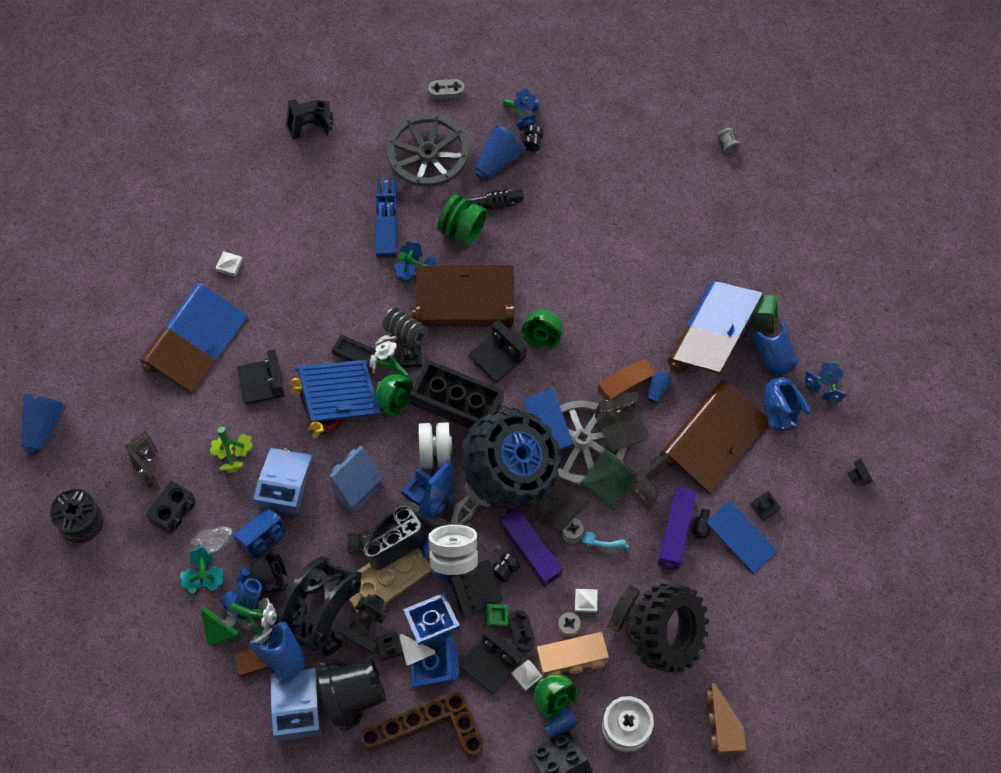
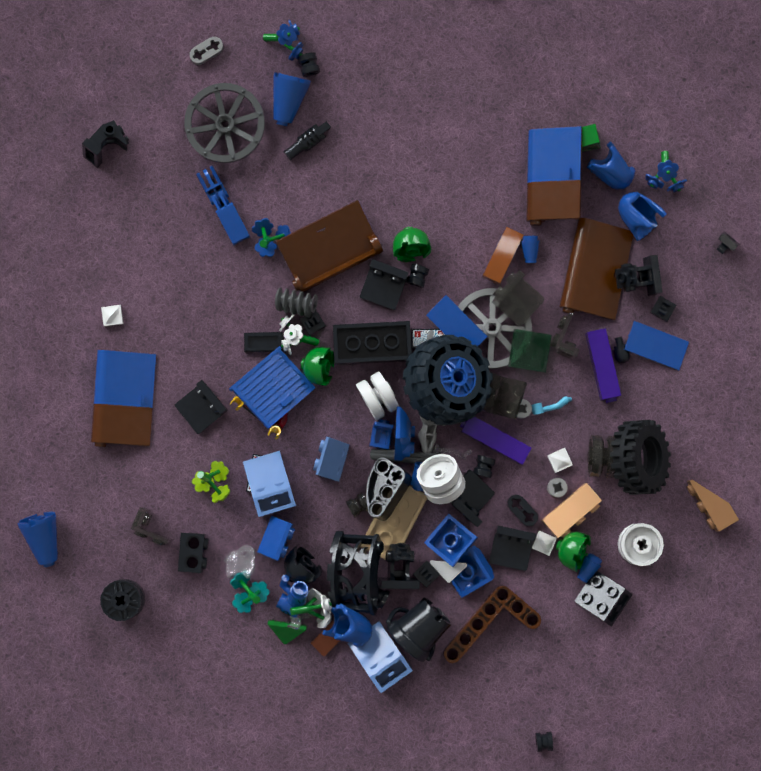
camera: 30 degrees left, 20 degrees up
(462, 220) = (291, 178): green wheel -> none
(496, 615) = (497, 508): green tile -> none
(535, 360) = (417, 275): none -> black wheel
(765, 464) = (648, 276): none -> black tile

